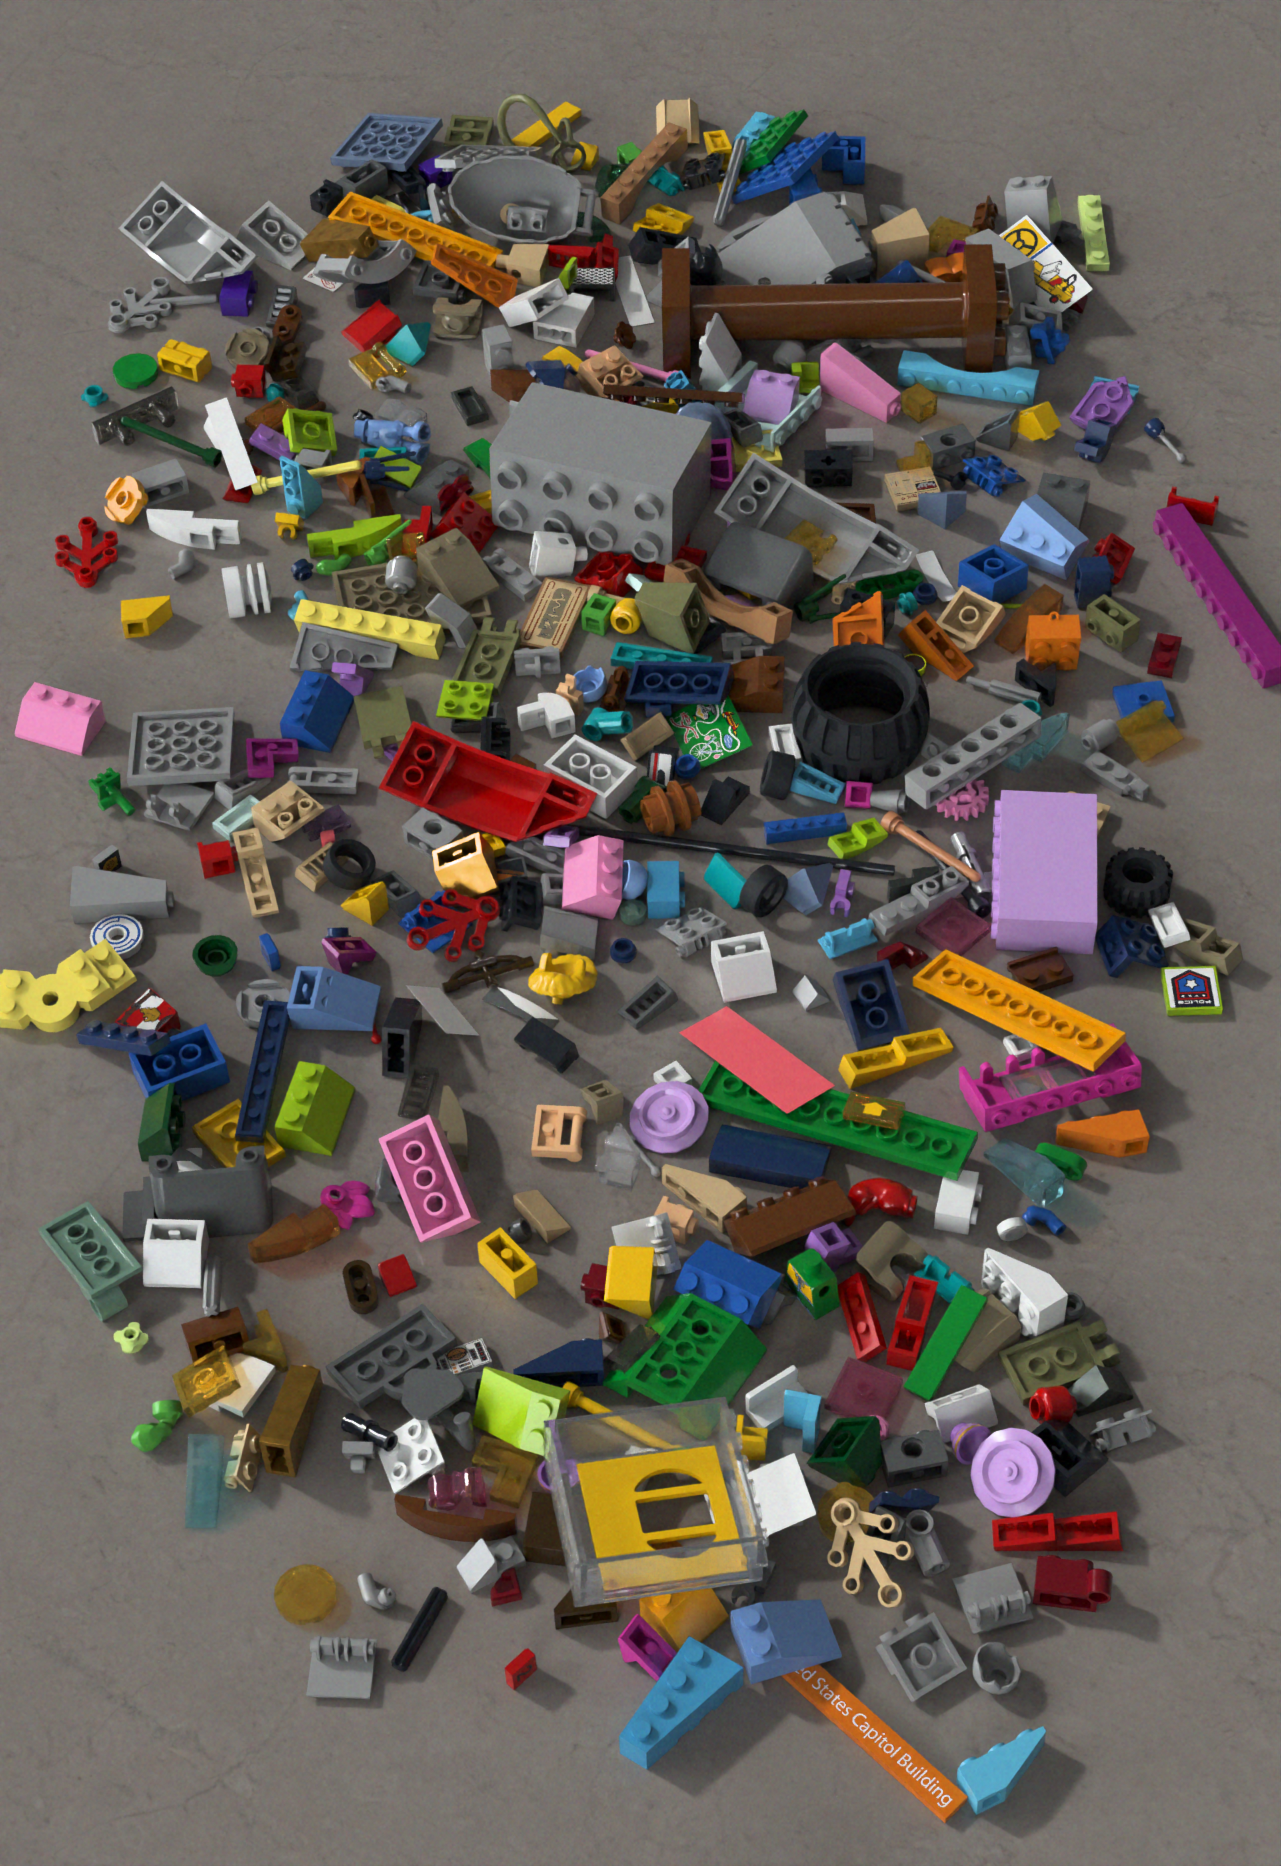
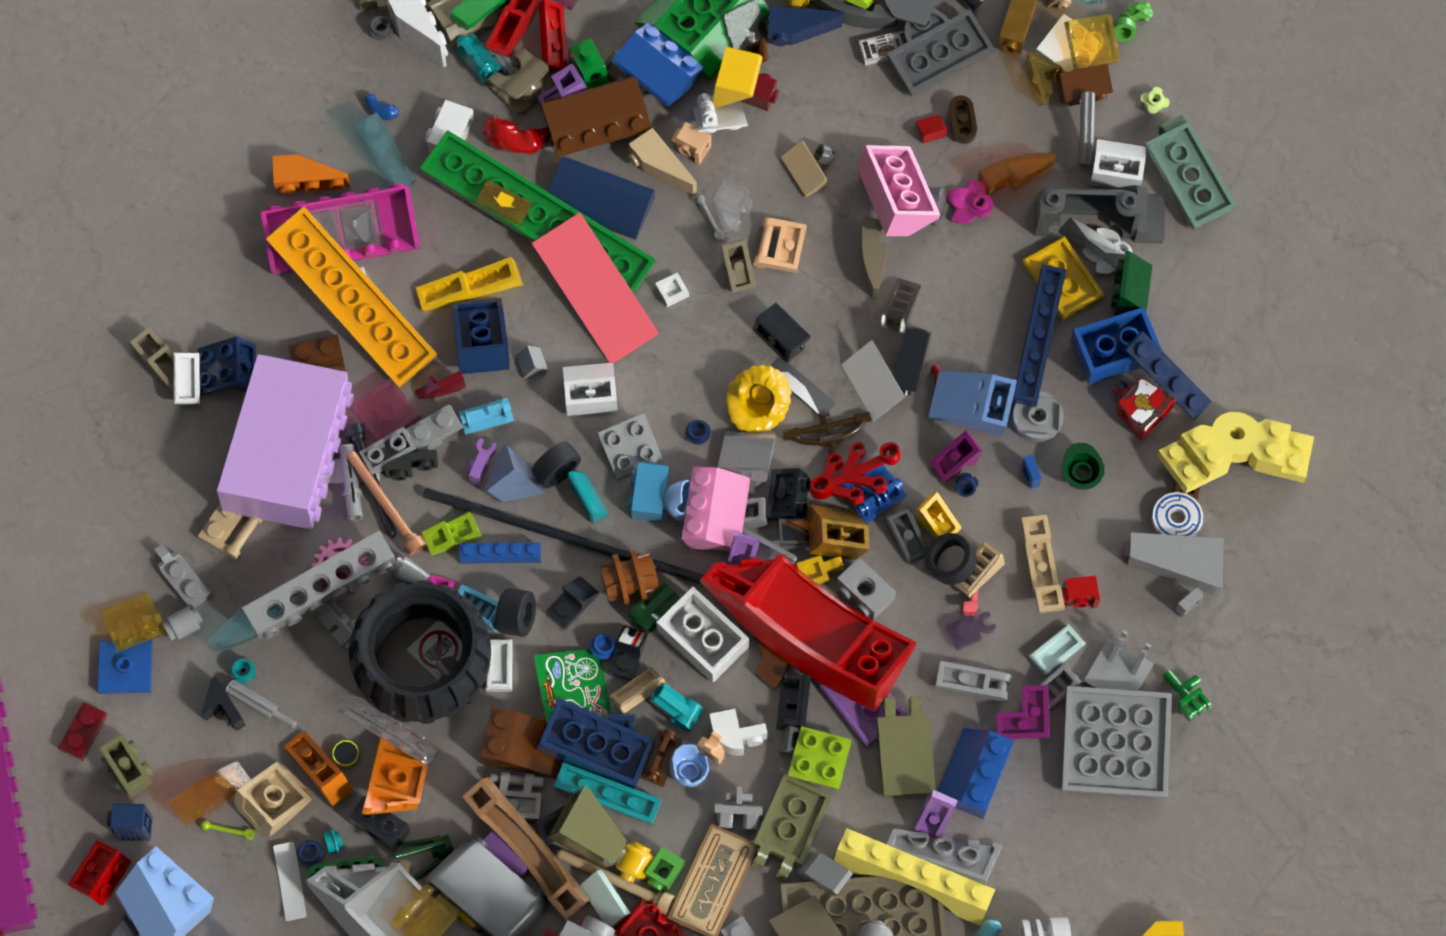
camera: 175 degrees left, 20 degrees up
(59, 719) = (1244, 802): bright pink slope -> none
(284, 812) = (1008, 630): tan slope -> none
(313, 1109) = (995, 293): lime slope -> none
(507, 1263) = (838, 114): yellow brick -> none
(632, 912) = (680, 473): sand green tile -> none
(656, 986) = (668, 379): dark grey slope -> none
(669, 1117) = (681, 247): lavender piece -> none
(993, 574) = (233, 854): blue brick -> none
(1012, 1229) = (410, 98): white tile -> none
(1053, 641) = (197, 737): orange brick -> none
(1068, 1162) = (353, 156): green beam -> none
(1132, 867) = (192, 414): black tyre -> none
(1191, 991) = (186, 317): tile -> none

